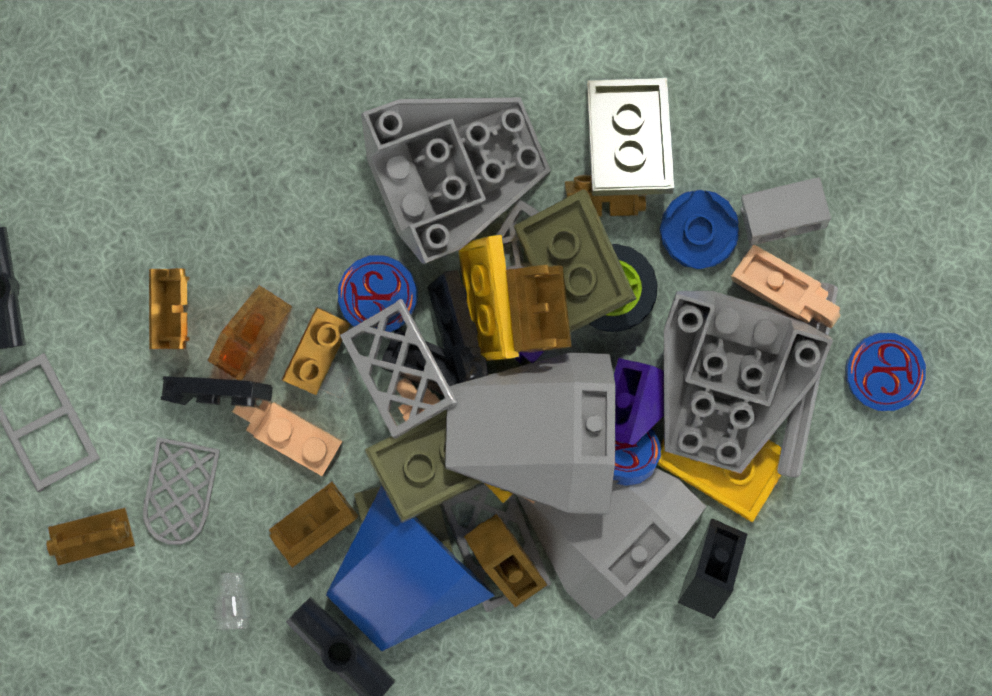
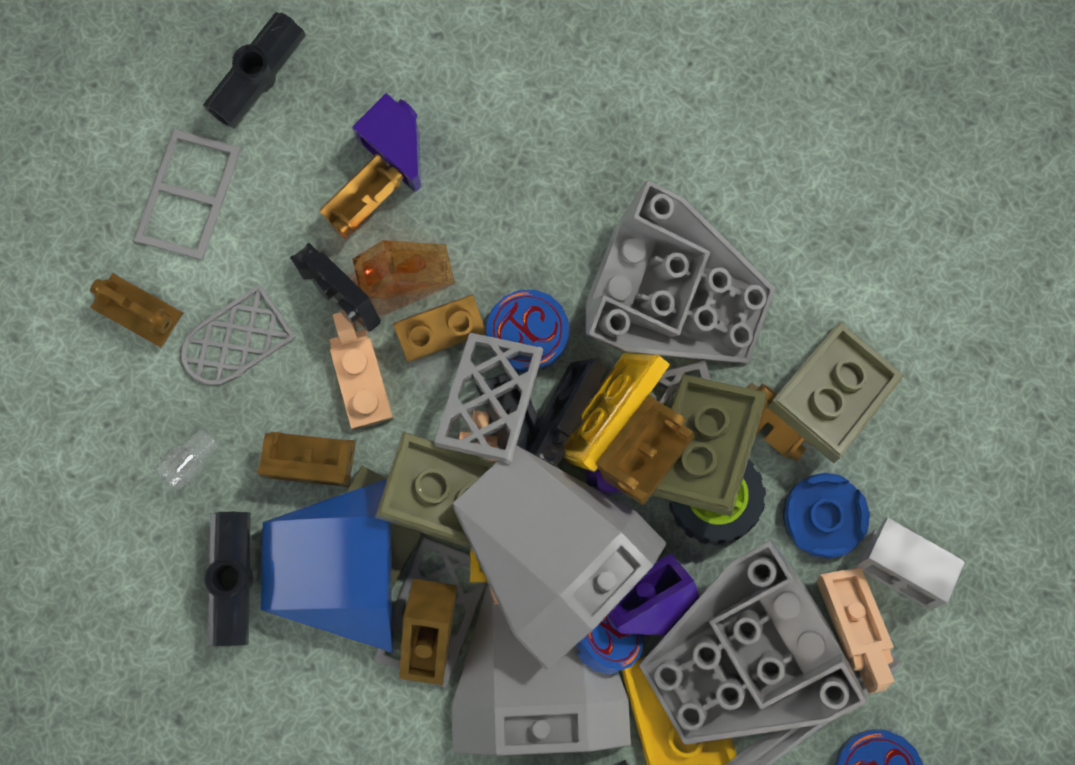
camera: 40 degrees right, 10 degrees down
(148, 244) = (393, 134): none -> dark purple slope

